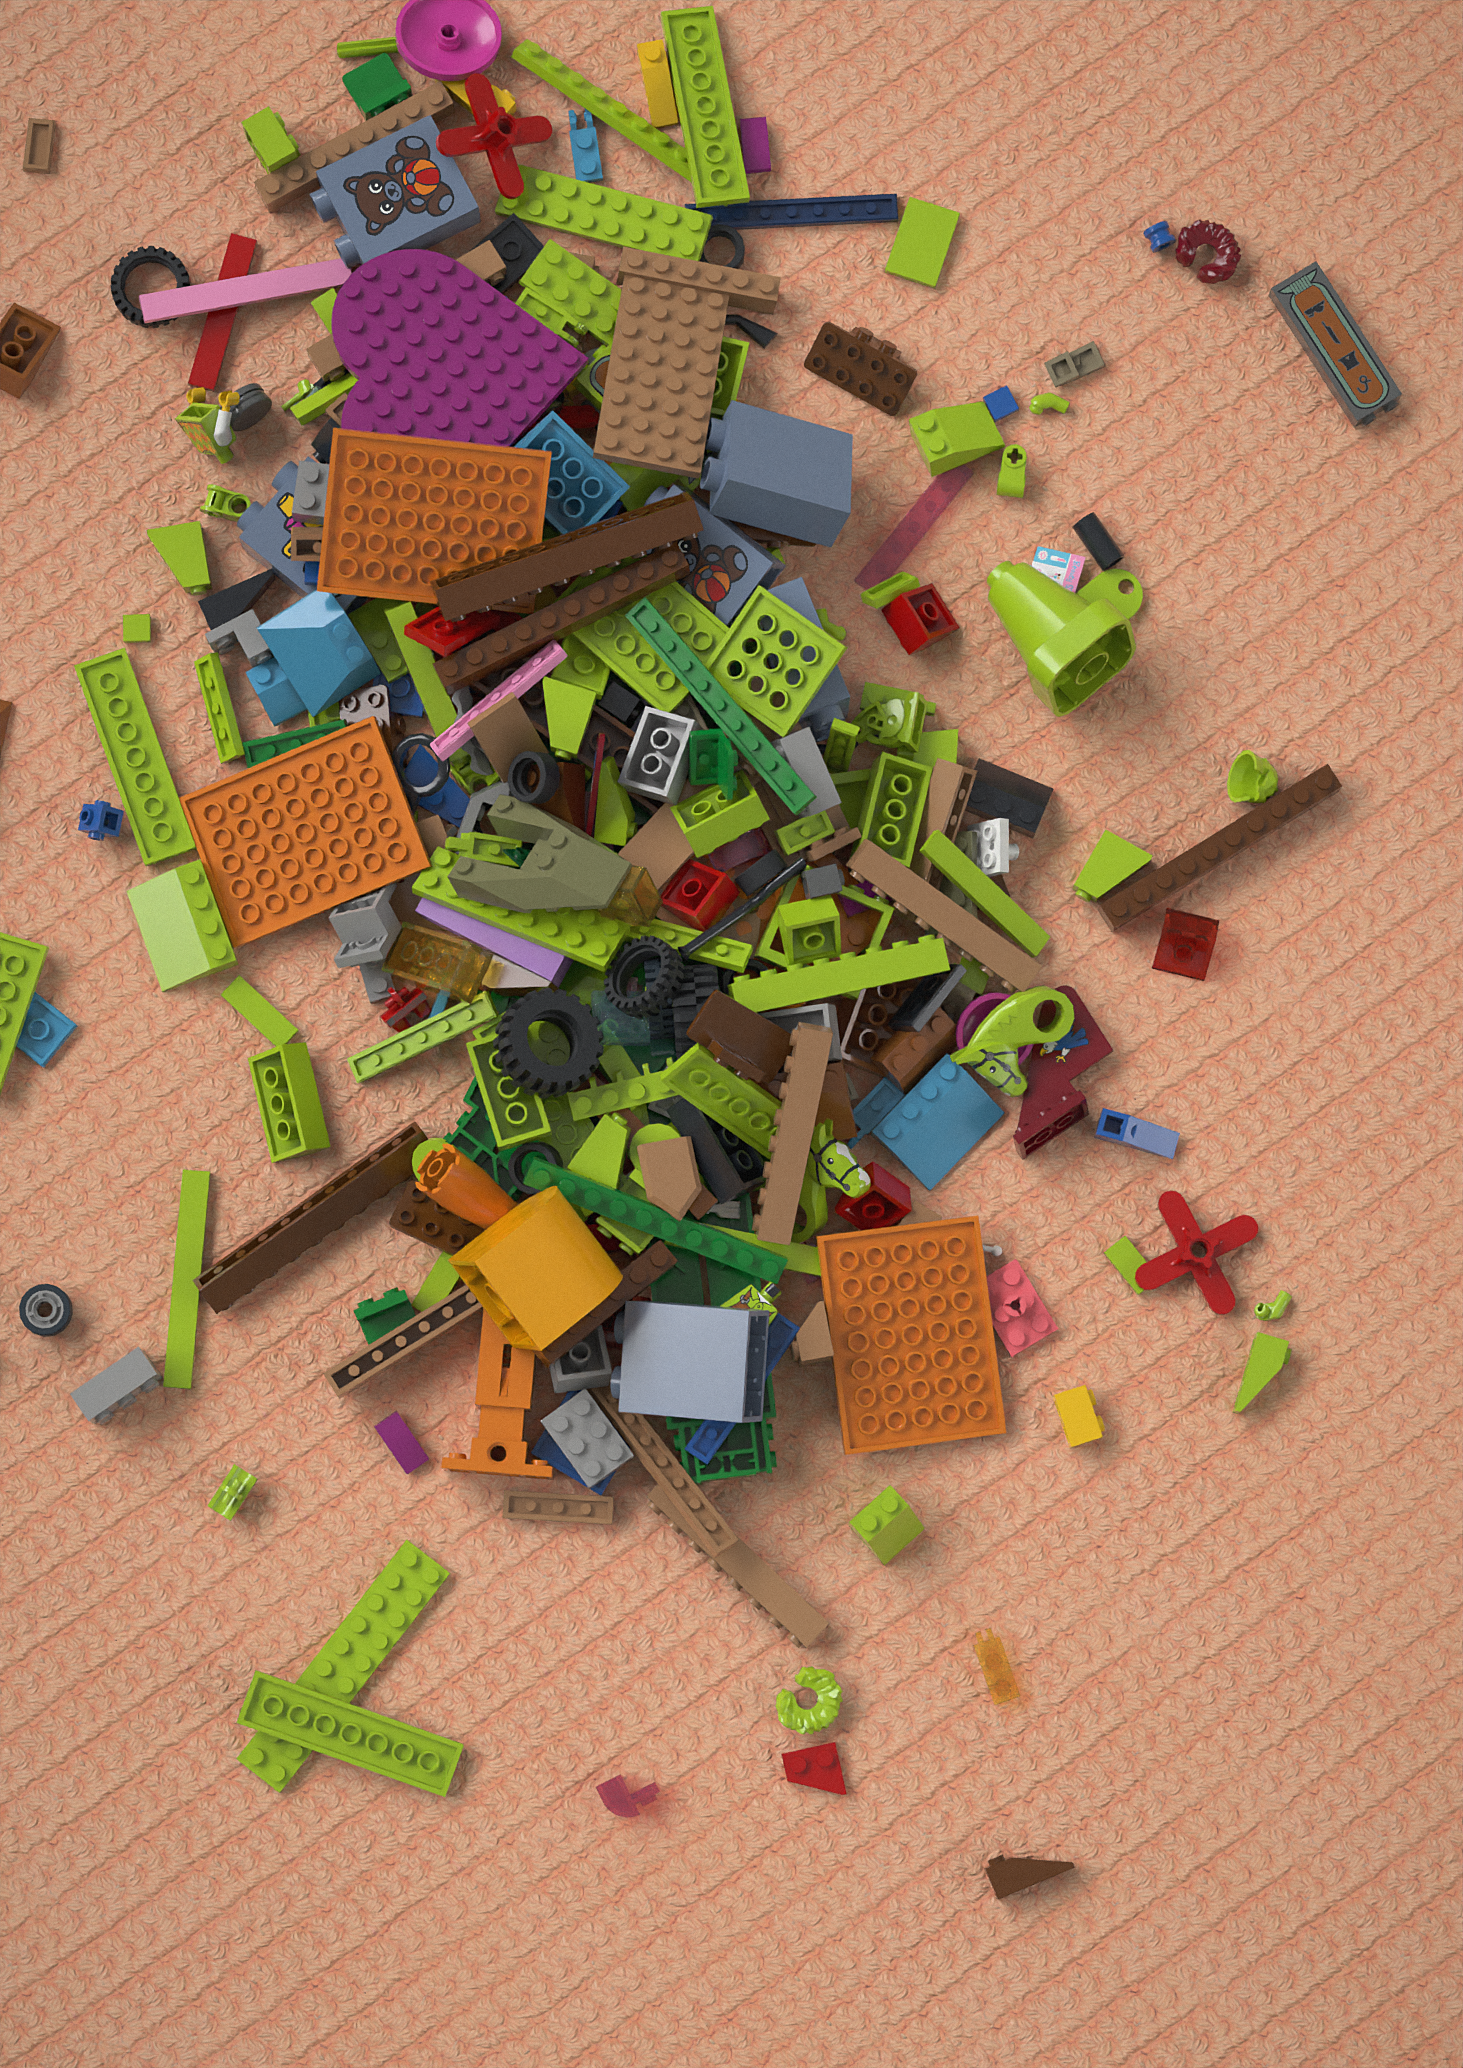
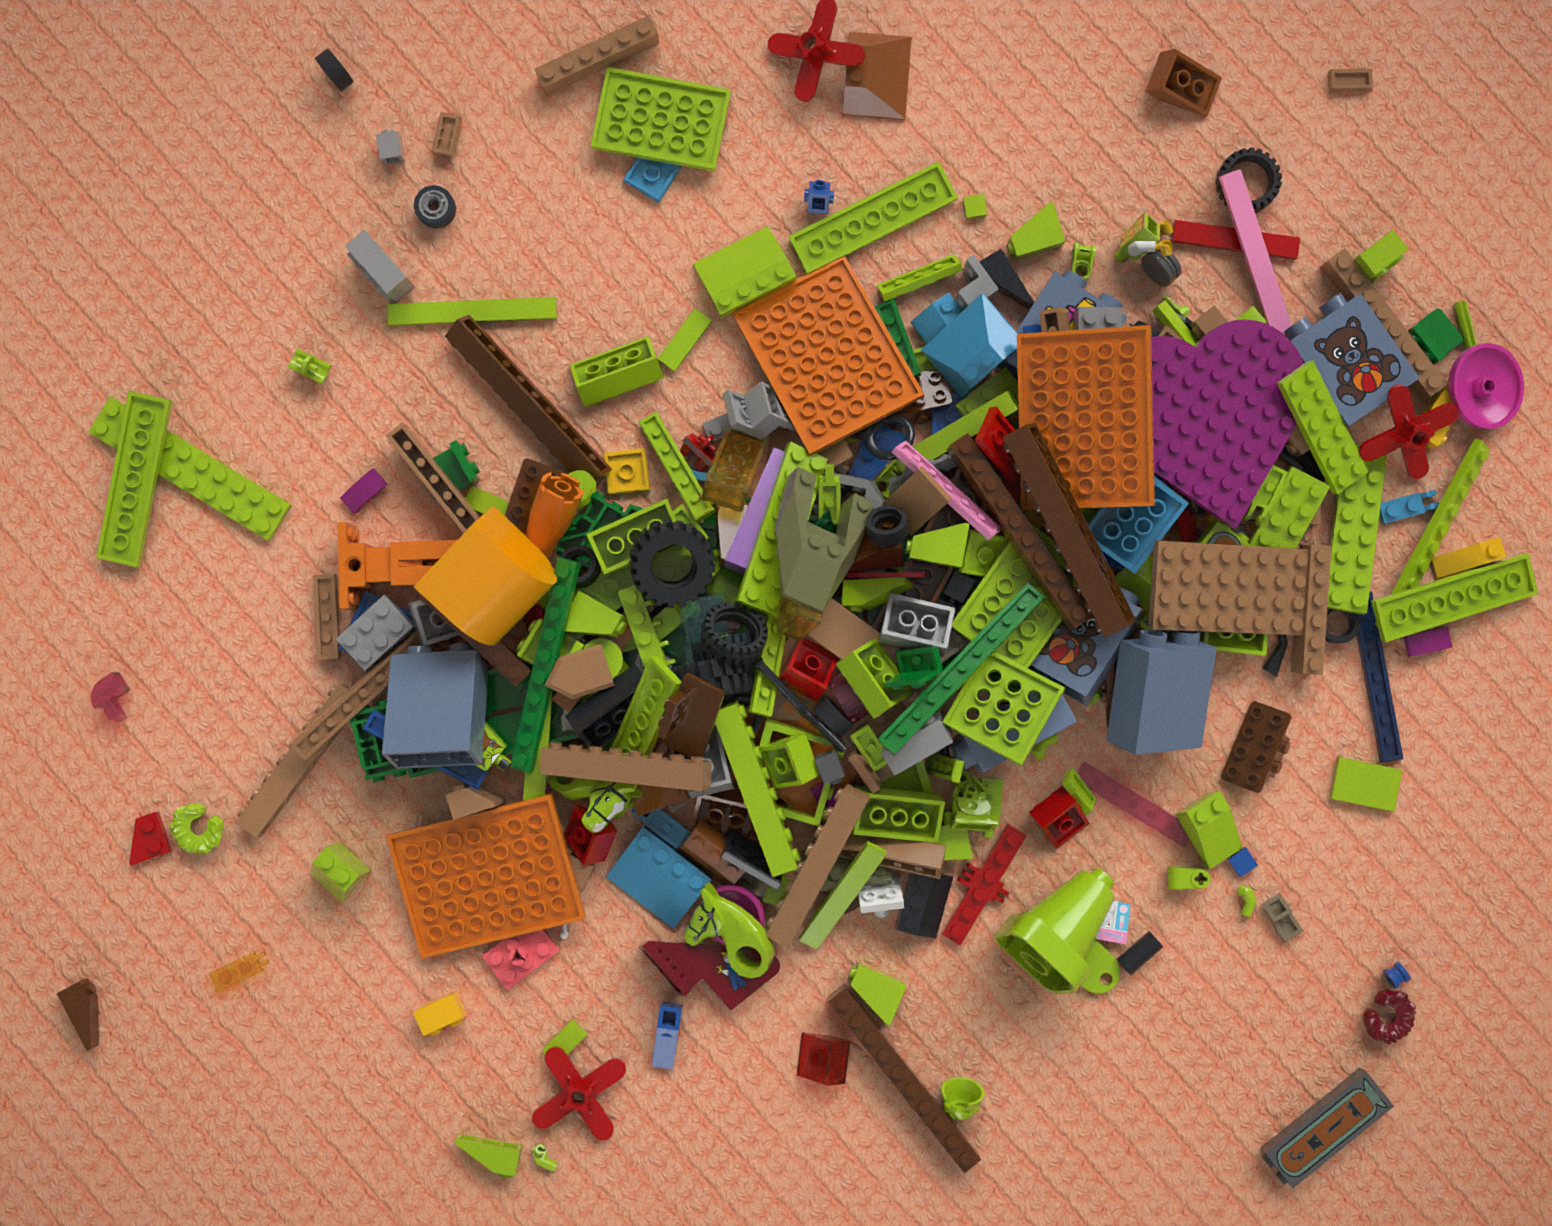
camera: 85 degrees right, 5 degrees up
(419, 1101) = (628, 471): none -> yellow tile
(476, 238) = (1322, 427): none -> lime plate
(992, 722) = (983, 884): none -> red hinge

